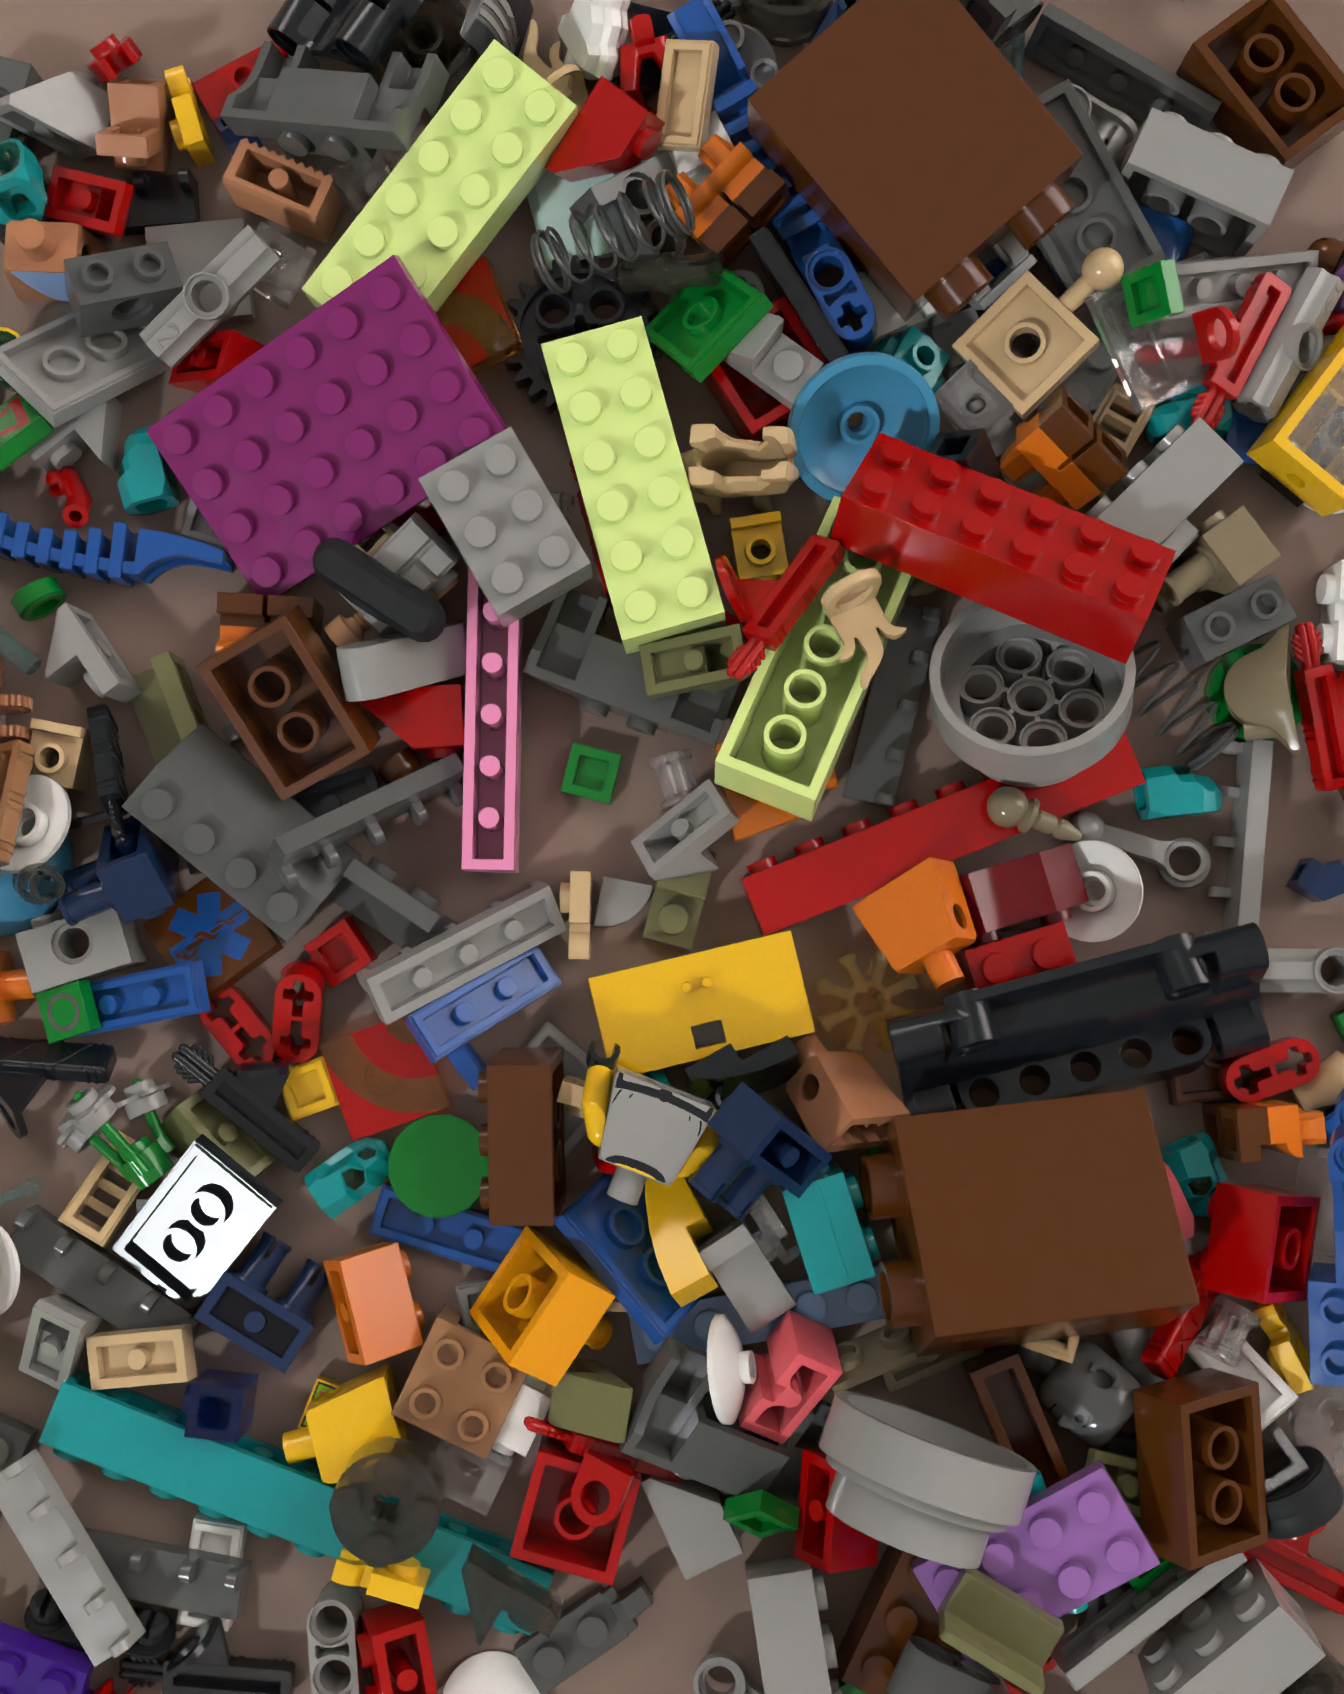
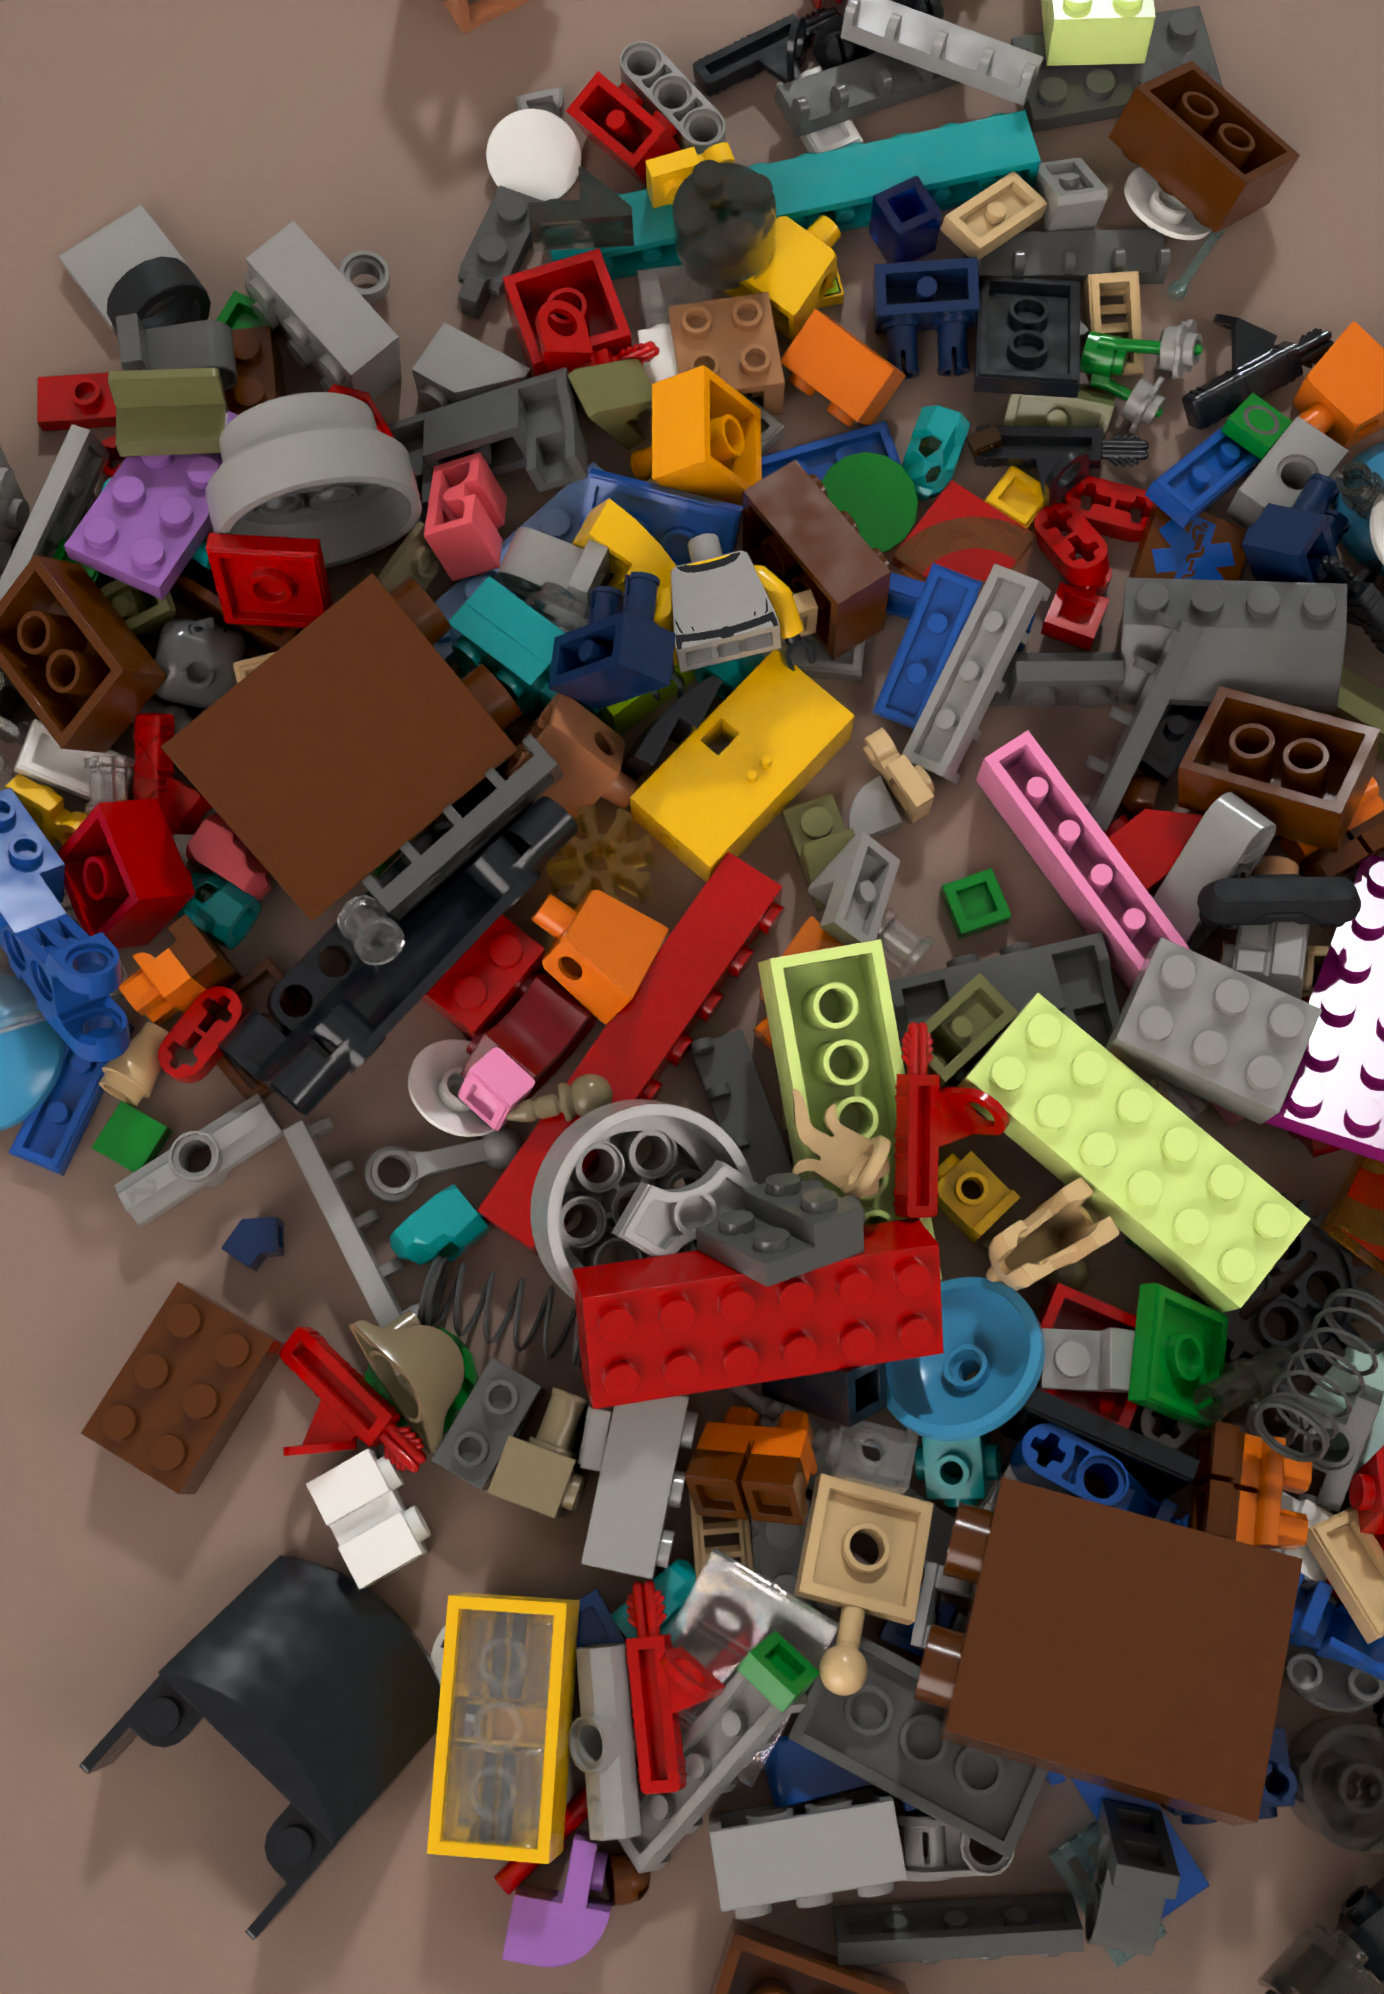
camera: 150 degrees right, 10 degrees down
(303, 1153) = (984, 440): none -> dark brown piece
(727, 1369) = (522, 483): white dish -> none
(761, 1513) = (416, 404): green tile -> none
(949, 582) = (785, 1230): none -> dark grey plate
(977, 1078) = (468, 833): none -> dark grey hinge
(1005, 1409) = (269, 579): none -> red tile
(1024, 658) = (667, 1219): none -> light grey tile
(1072, 865) = (495, 1087): none -> bright pink slope
(1101, 1046) = (374, 935): none -> clear bush

